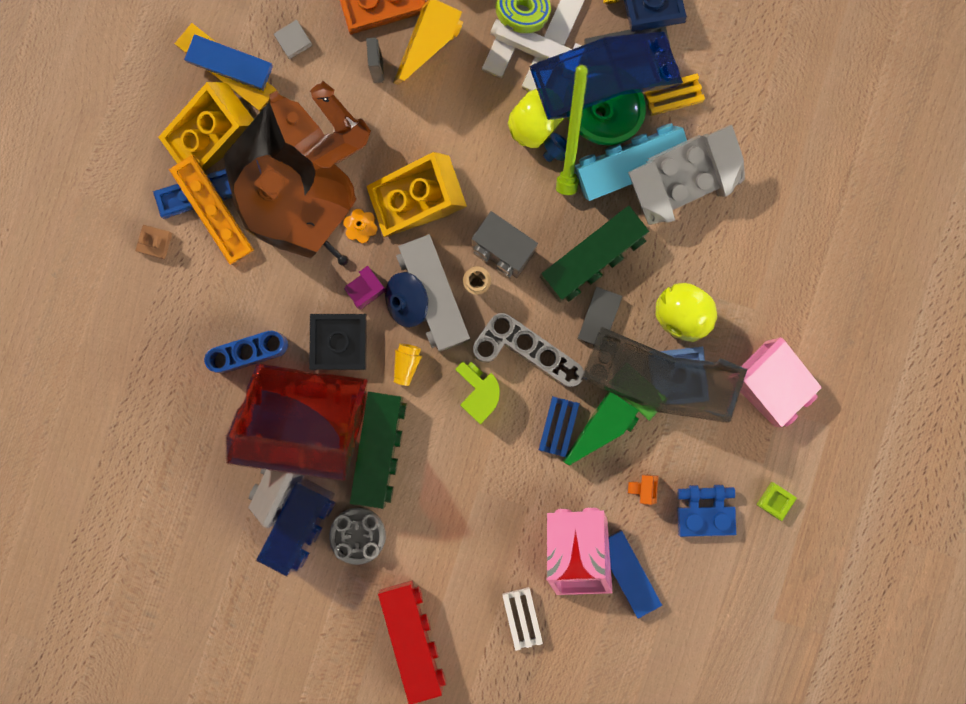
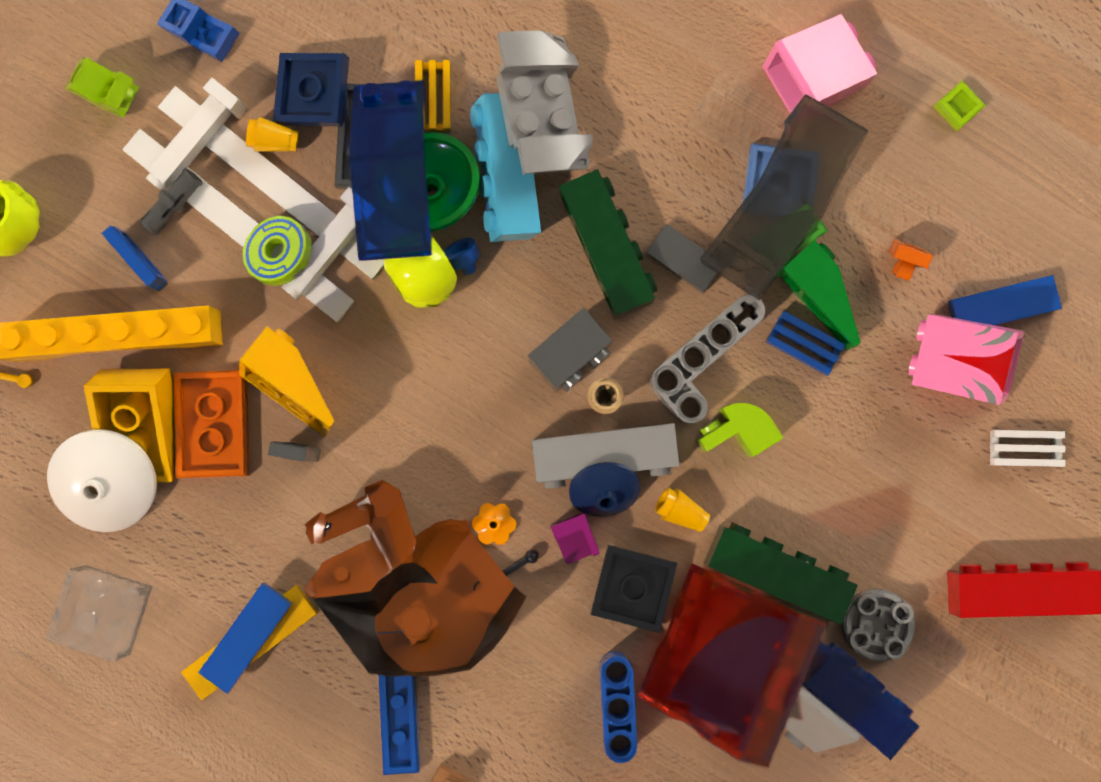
camera: 75 degrees left, 0 degrees up
(207, 125) = (322, 686): yellow slope -> none
(211, 209) = (426, 706): light orange tile -> none
(293, 39) = (236, 548): light grey tile -> none
(416, 194) = (475, 444): yellow slope -> none
(567, 181) = (507, 253): lime piece -> none
(686, 312) = (708, 151): neon yellow piece -> none
(706, 521) = (962, 194): blue plate -> none

